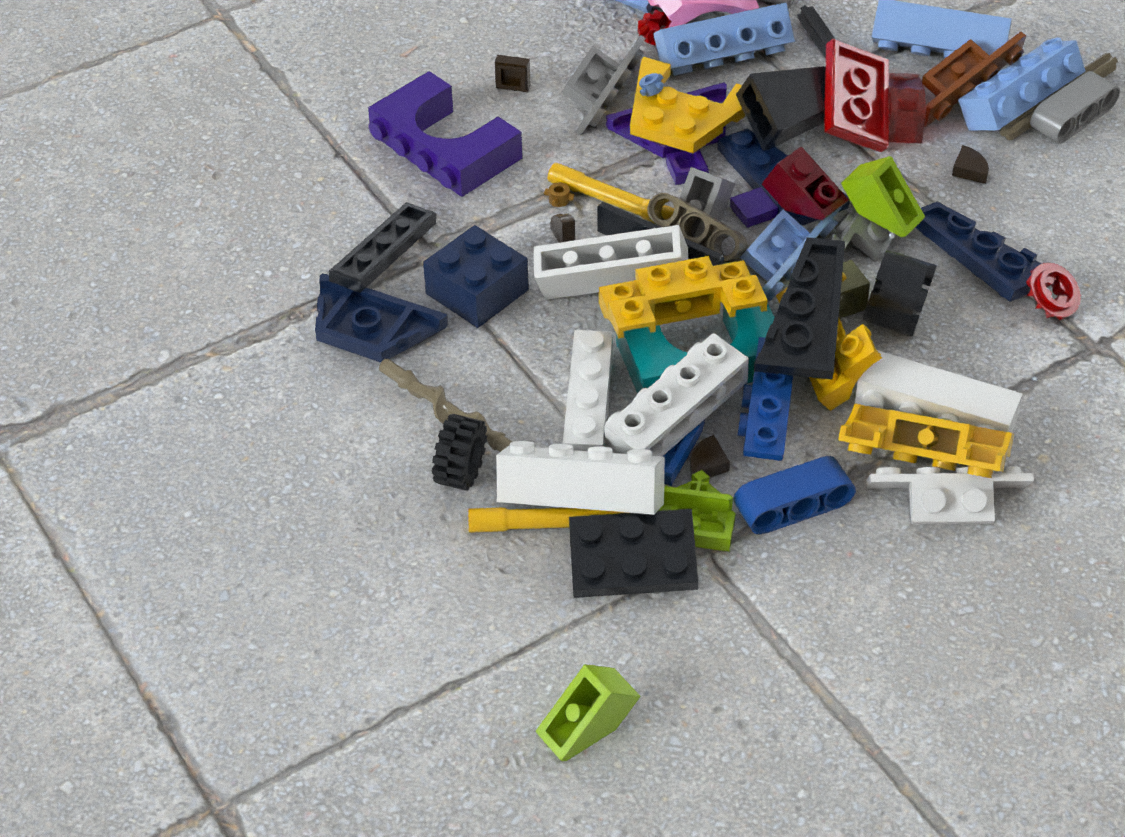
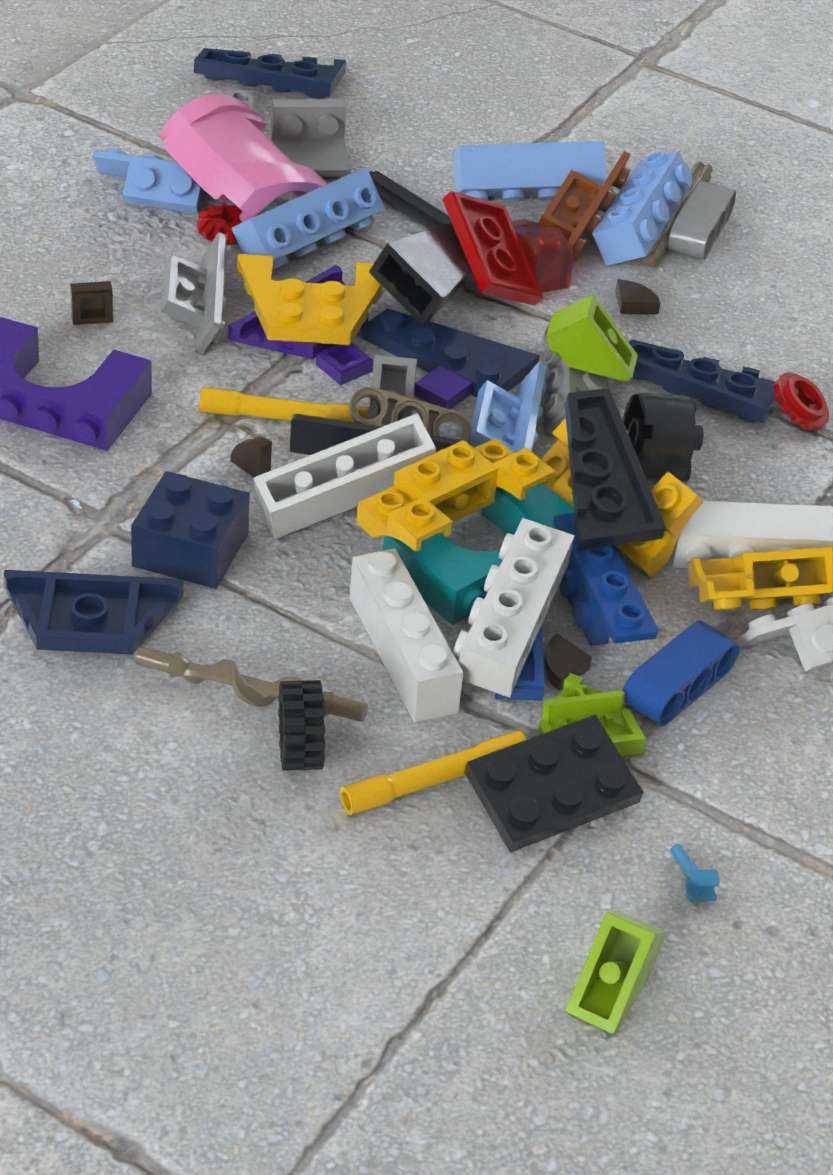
camera: 30 degrees left, 5 degrees down
(382, 247) = (57, 525): black tile -> none
(559, 194) = (221, 422): pearl gold piece -> none
(580, 478) = (459, 715): white brick -> none
(651, 84) = (271, 279): medium blue piece -> none
(703, 668) = (698, 883): none -> dark azure hand
(804, 187) = (502, 351): dark red slope -> none

